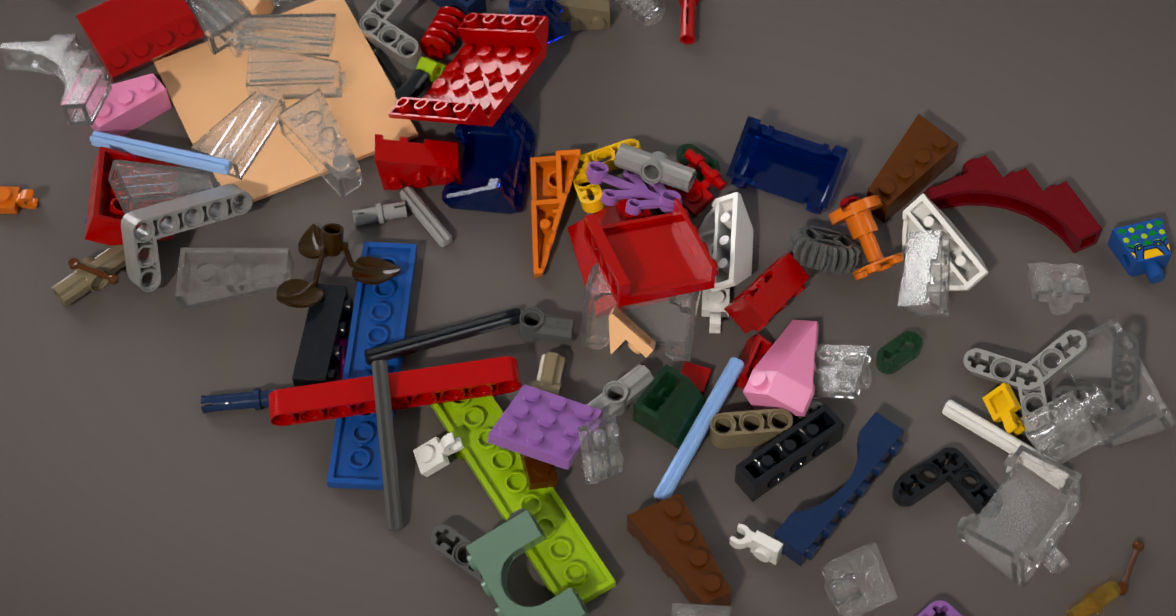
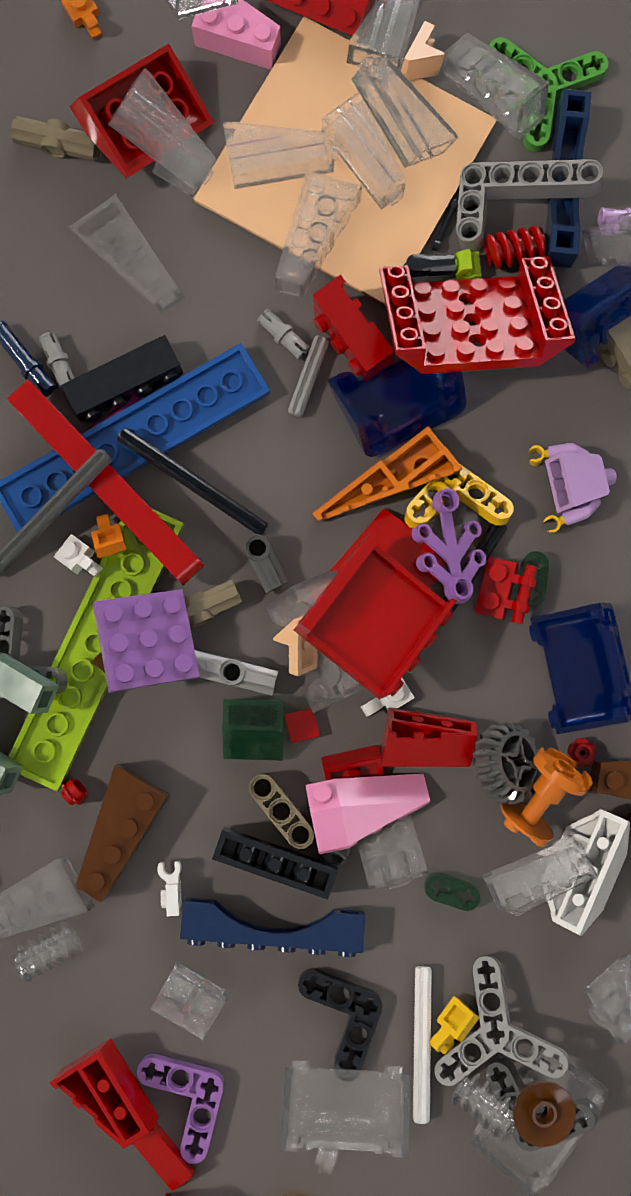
camera: 50 degrees right, 25 degrees up
(75, 264) = (46, 117): reddish brown hinge -> none
(161, 152) = (203, 100): light blue axle -> none
(175, 222) = (140, 168): light grey beam -> none
(265, 377) = (56, 358): none -> light grey pin
(329, 242) = (211, 308): dark brown plant -> none
(441, 417) = (108, 538): none -> orange plate
(600, 449) = (160, 700): clear plate -> none
(625, 573) = (74, 792): none -> red plate
(645, 91) = (575, 481): none -> lavender torso
(668, 171) = (488, 550): light grey piece -> none
(699, 429) = (249, 766): light blue axle -> none
(729, 240) = (453, 667): white wedge -> none
(1060, 429) = (451, 1101): clear plate -> none
(1113, 359) = (553, 1123): none -> reddish brown dish

